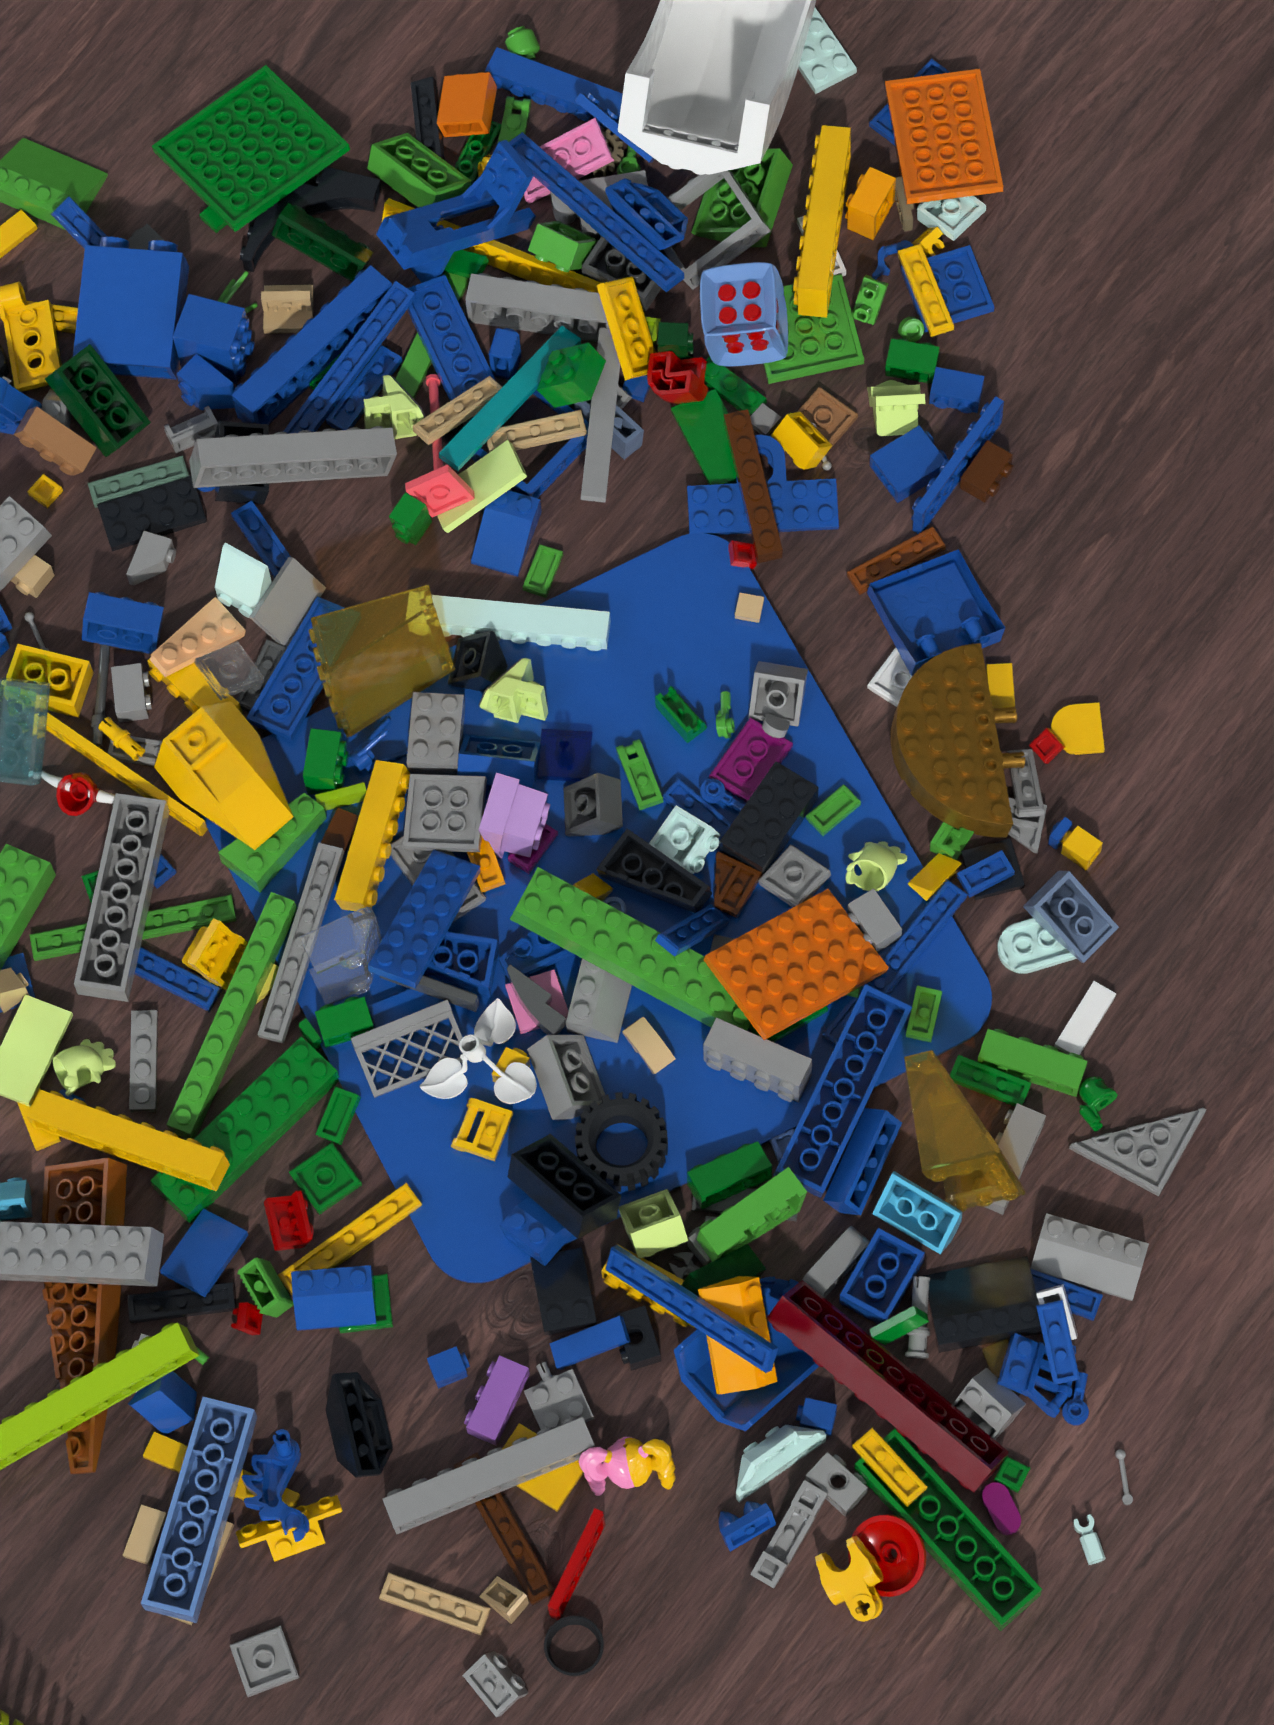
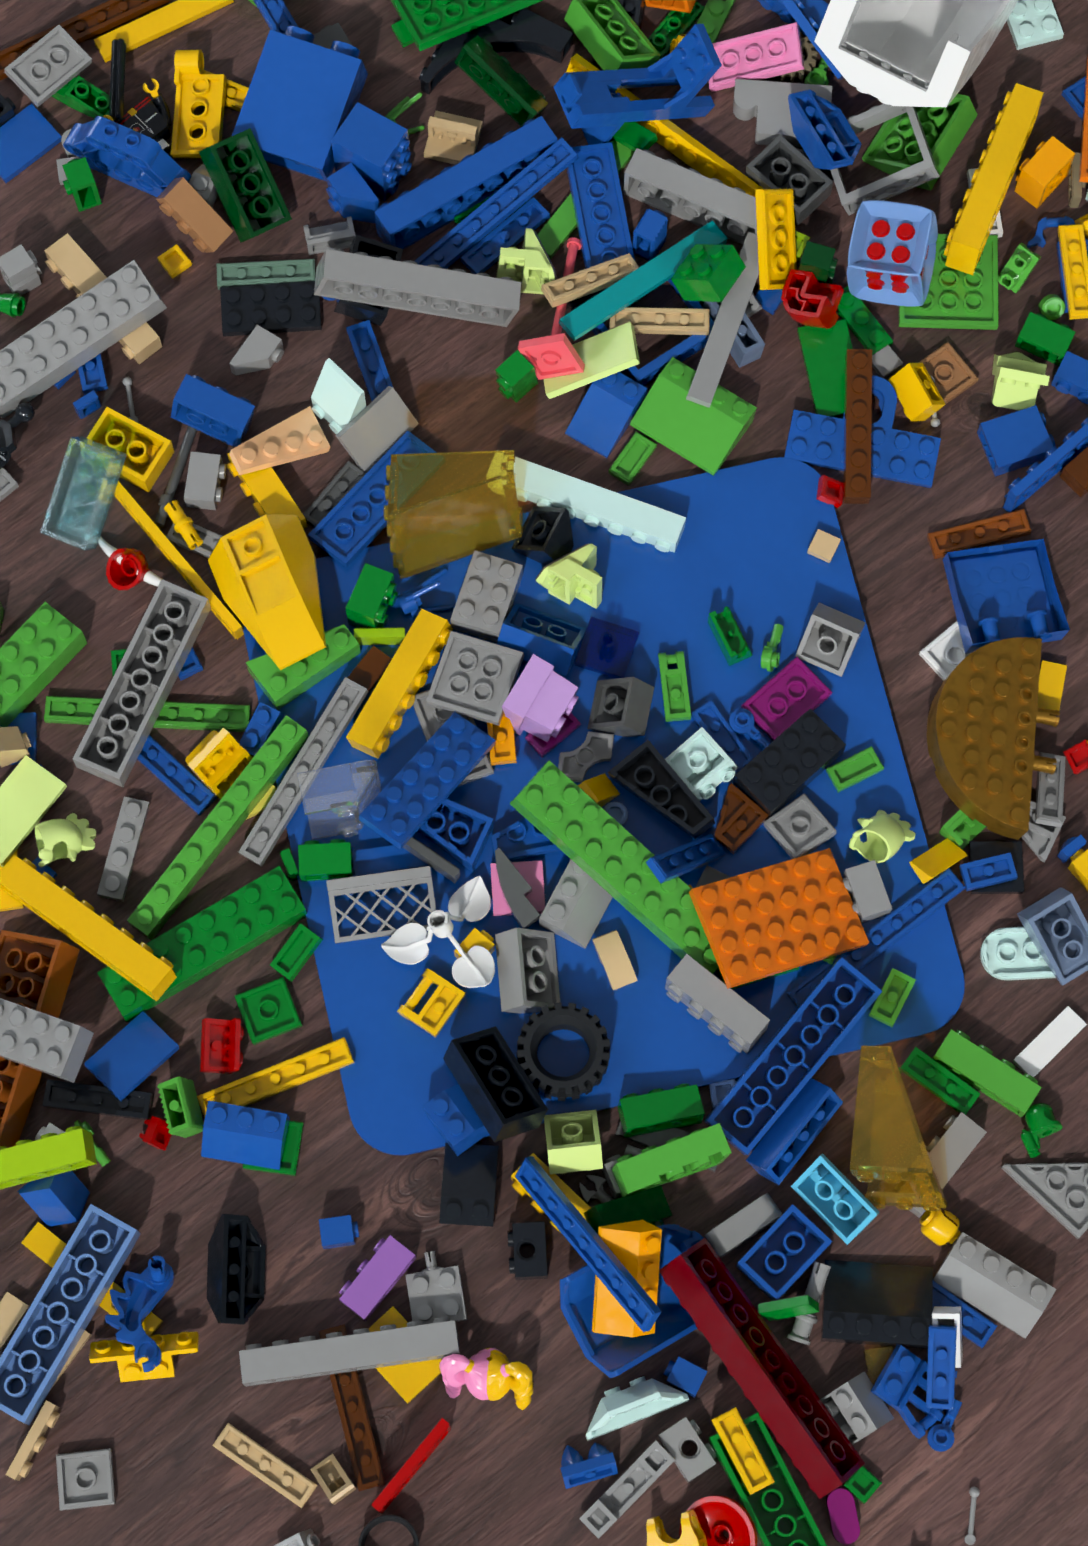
camera: 10 degrees right, 5 degrees up
(205, 1637) = (34, 1441): none -> tan plate
(229, 670) = (303, 483): clear tile -> none
(247, 912) = (260, 728): none -> blue plate
(561, 245) = (731, 141): bright green brick -> none
(578, 852) = (594, 750): none -> light grey tile
(589, 1342) = (481, 1244): blue tile -> none
(591, 527) = (688, 428): none -> bright green slope
(597, 214) = (774, 118): blue plate -> none
(775, 726) = (819, 671): light grey tile -> none
(1024, 1215) = (940, 1226): none -> yellow head

